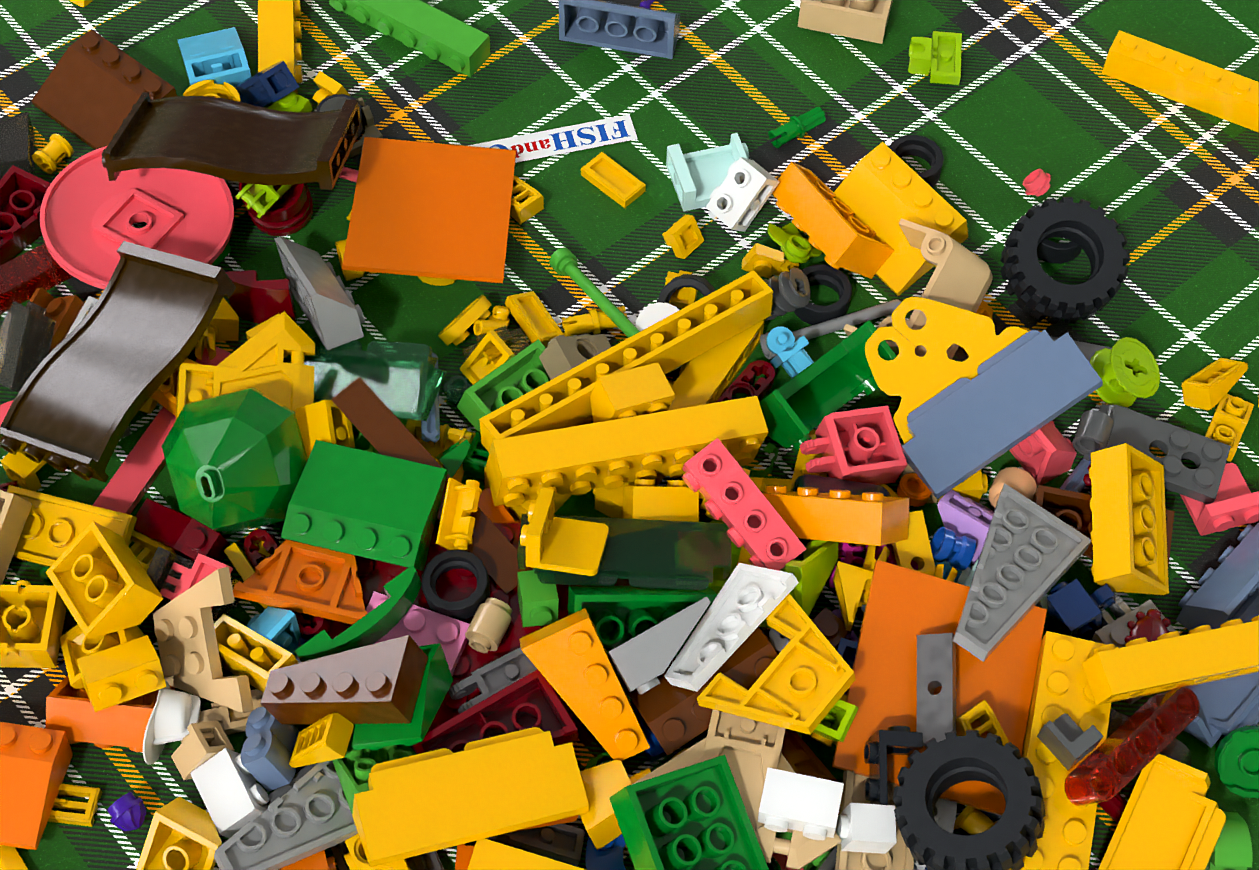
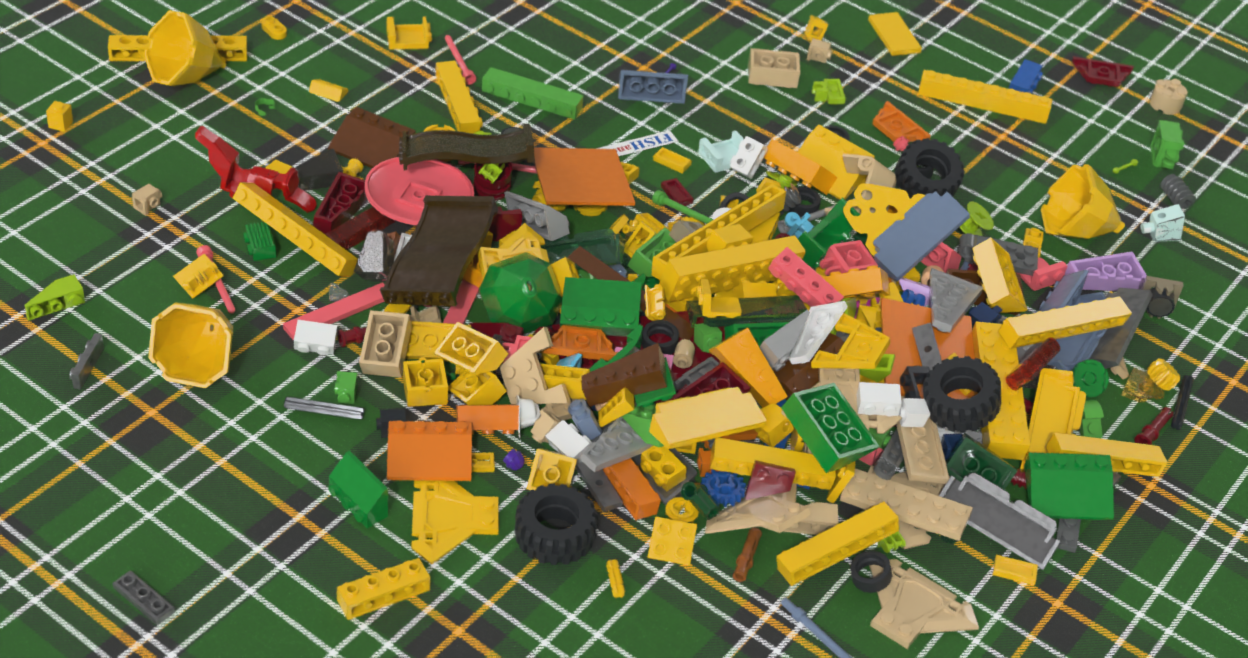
camera: 15 degrees left, 15 degrees down
(68, 485) = (428, 315): none -> tan bracket
(121, 673) = (497, 389): yellow brick -> none
(215, 57) = (429, 115): medium azure slope -> none
(267, 85) = (470, 124): dark blue slope -> none
(327, 87) = (499, 125): yellow tile -> none
(600, 250) = (677, 192): none -> dark red tile
(683, 236) = (721, 181): yellow tile -> none
(797, 126) = (764, 128): green axle -> none
(1043, 142) = (897, 124): none -> orange wing
(1068, 740) = (1001, 364): dark grey panel -> none
(1210, 385) = (1019, 224): yellow slope -> none

